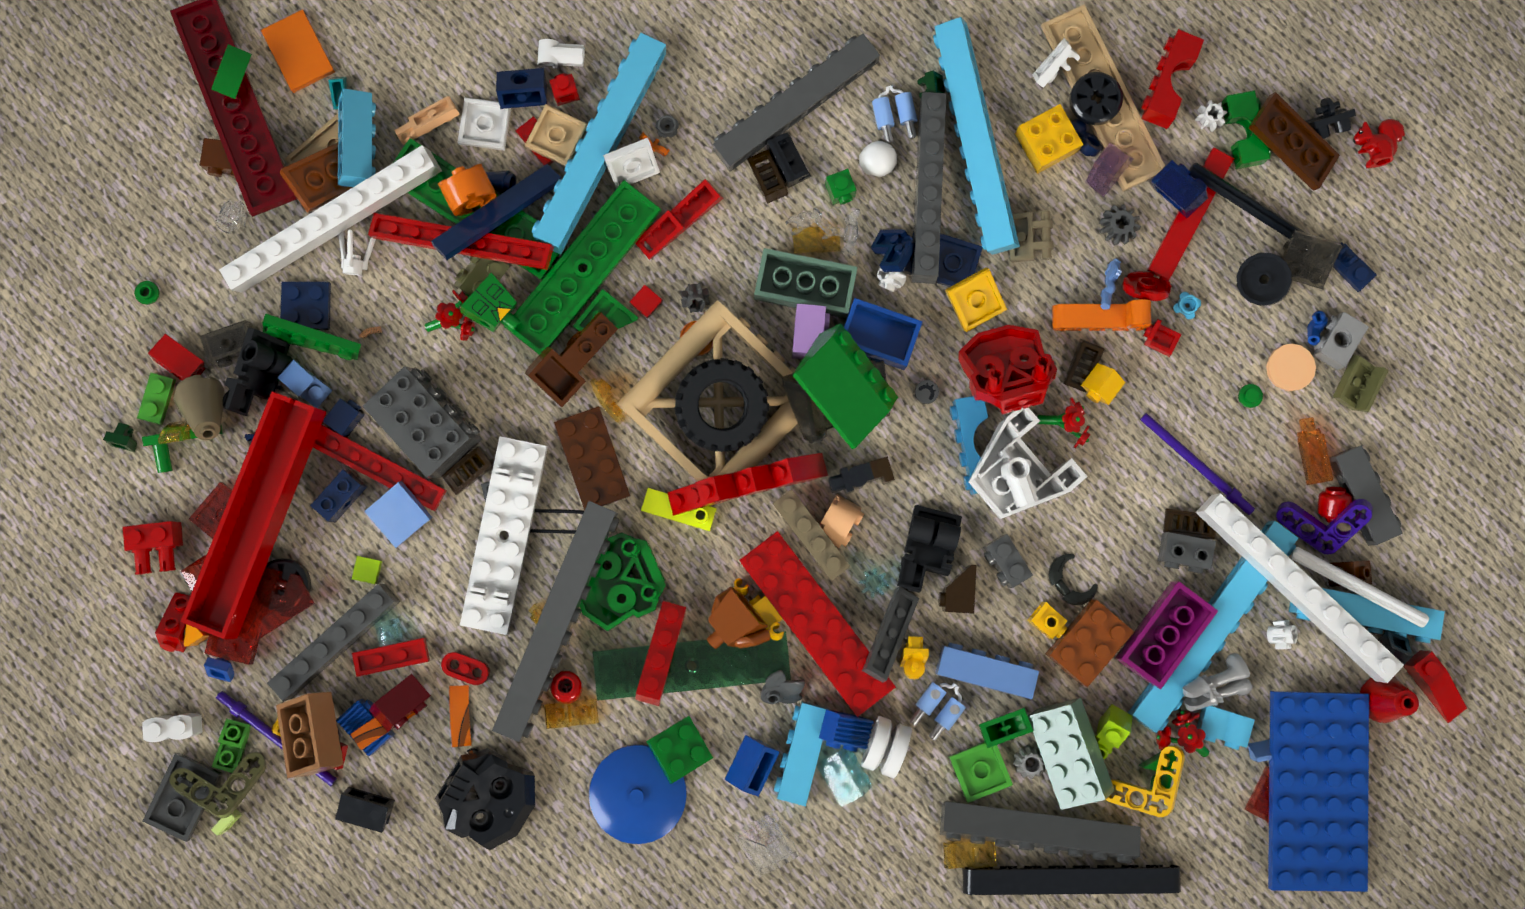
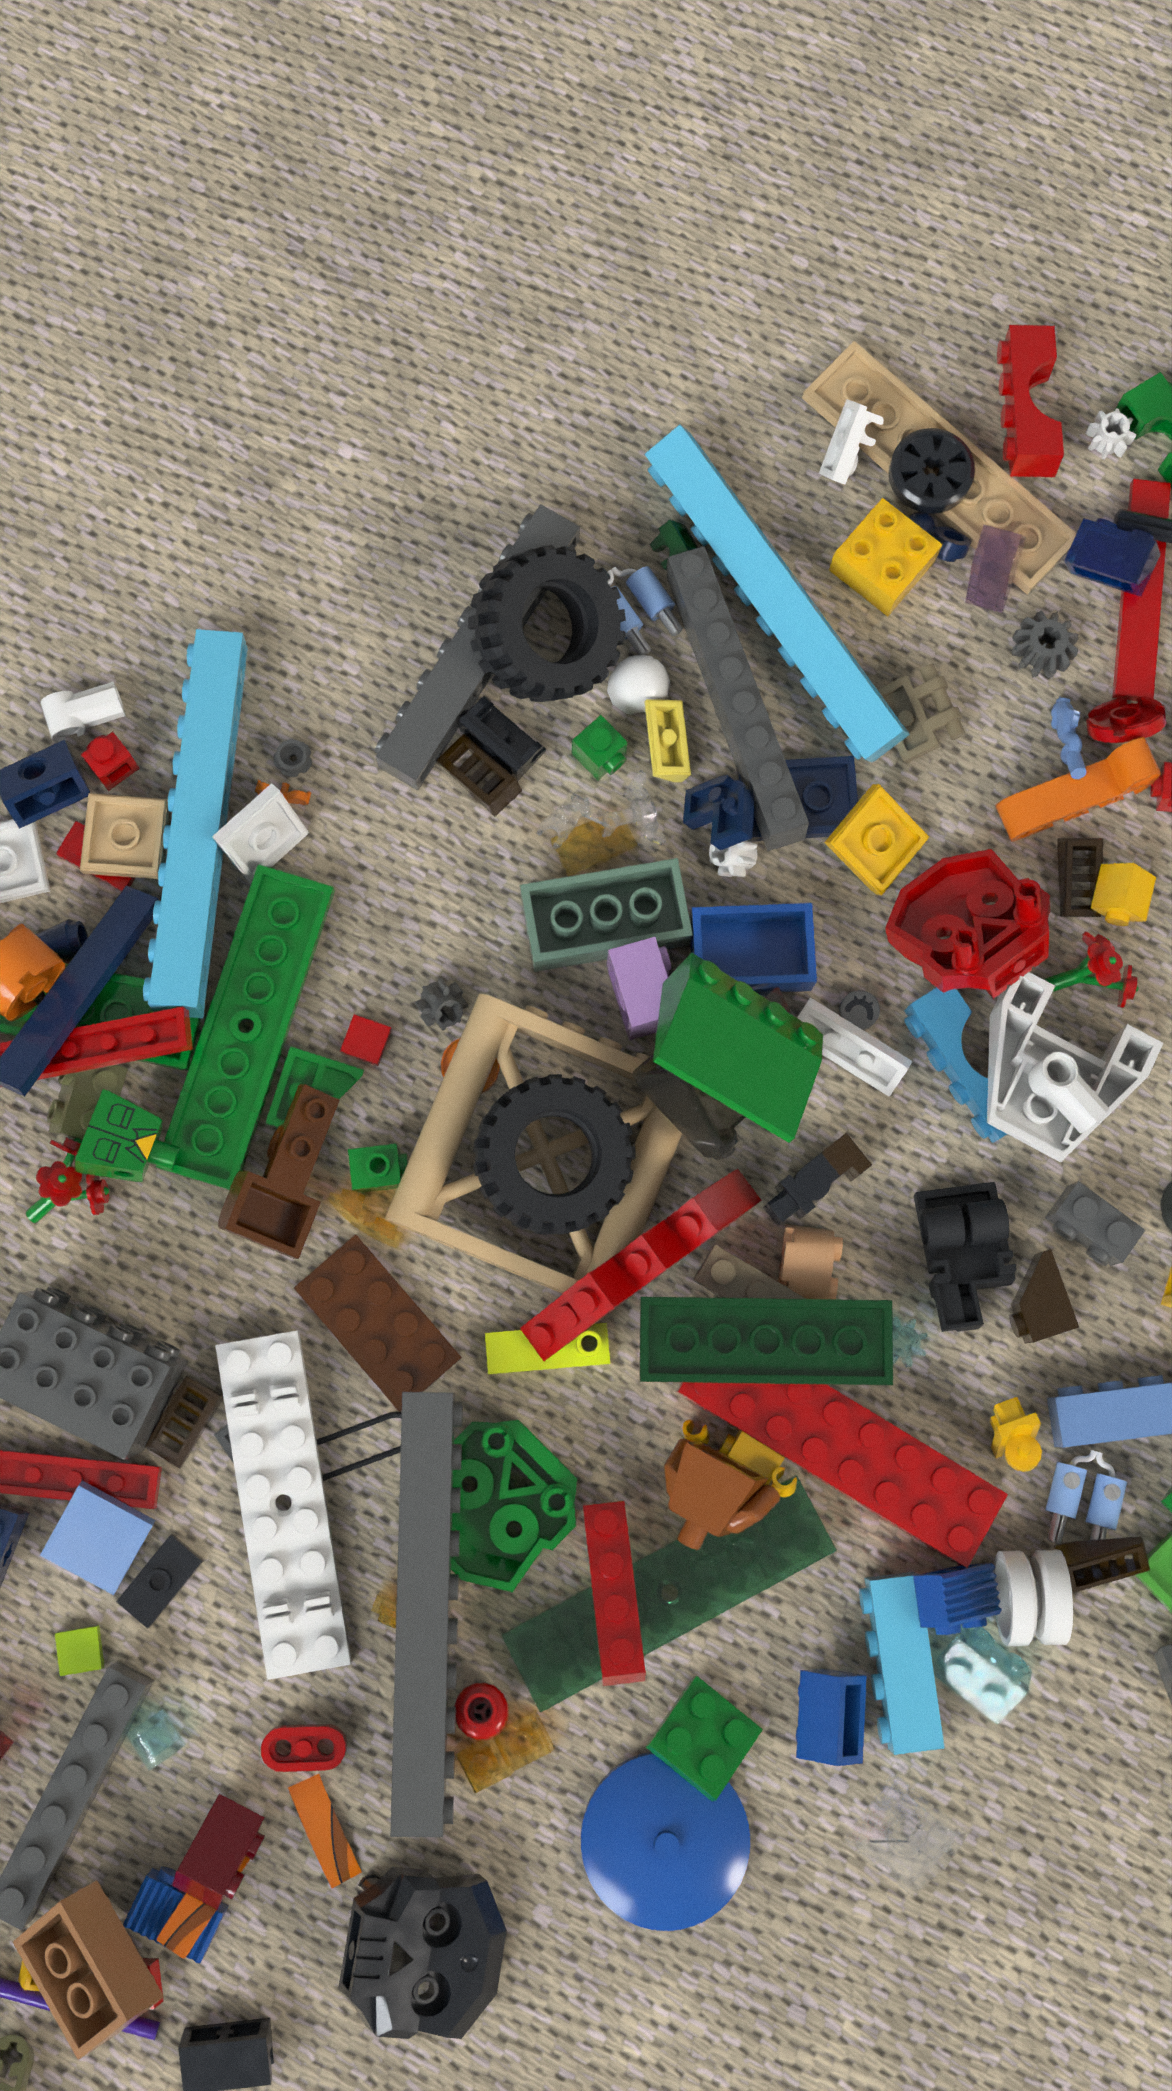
camera: 25 degrees left, 5 degrees down
(390, 657) = (173, 1779): red plate -> none
(423, 550) = (160, 1581): none -> black plate
(623, 374) = (376, 1167): none -> green brick
(680, 218) = (367, 892): red slope -> none
(780, 690) = (826, 1573): dark grey plate -> none
(796, 551) = (766, 1341): none -> dark green plate
(866, 107) = (592, 615): none -> black tyre
(880, 197) = (667, 739): none -> light yellow slope
(890, 634) = (964, 1414): dark grey plate -> none
(914, 411) = (856, 1049): none -> white plate
(925, 741) = (1092, 1562): none -> dark brown slope

